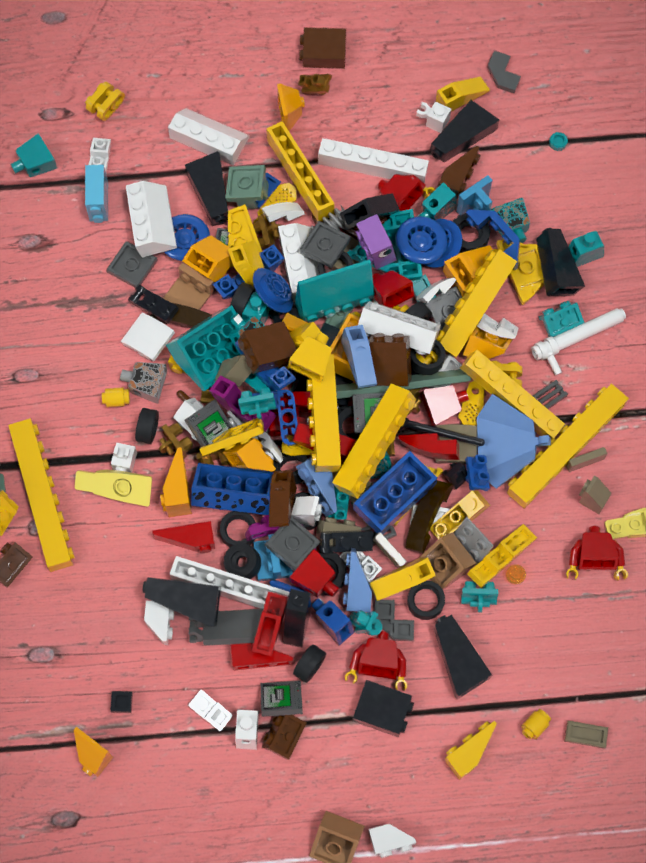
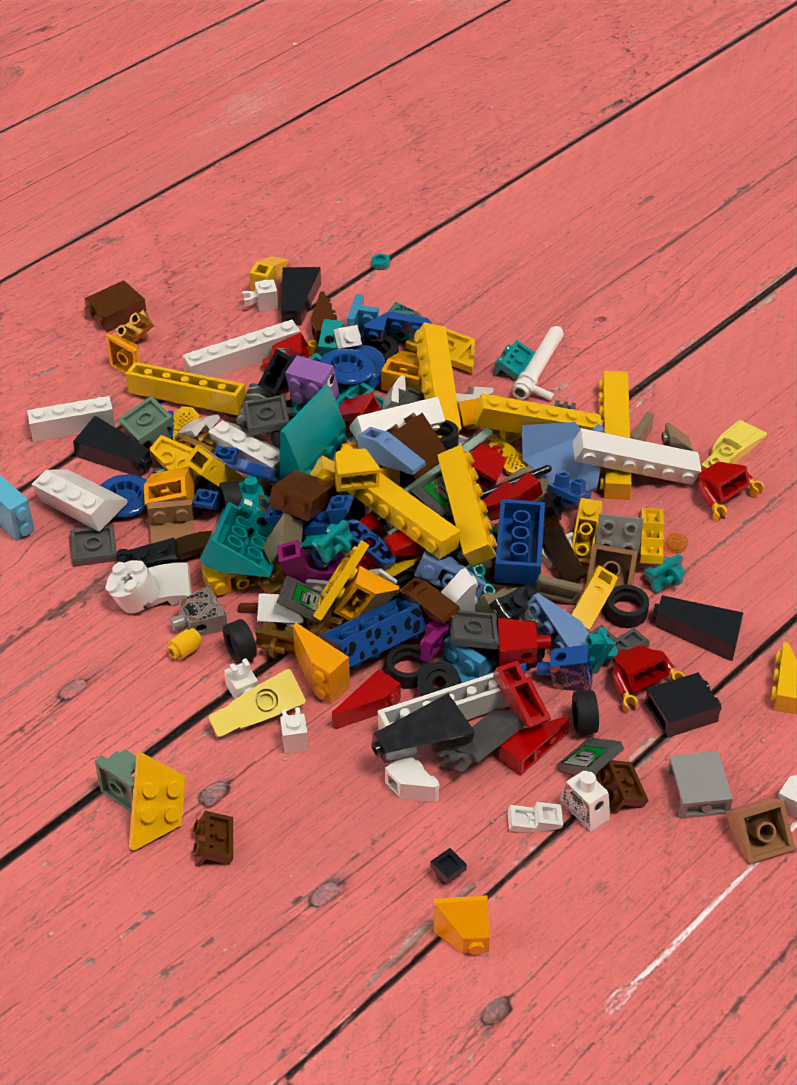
camera: 40 degrees left, 25 degrees down
(41, 496) = (201, 767): yellow brick -> none
(118, 325) = (132, 586): none -> white brick
(121, 523) = (294, 732): none -> white brick
(297, 617) = (539, 664): black slope -> none
(332, 775) = (700, 784): none -> light grey panel
(448, 211) = (347, 337): none -> white bracket
(503, 79) = (293, 249): dark grey tile -> none
(549, 486) = (636, 456): none -> white brick
(557, 264) = (472, 326): black slope -> none
(588, 248) = (482, 306): teal torso -> none

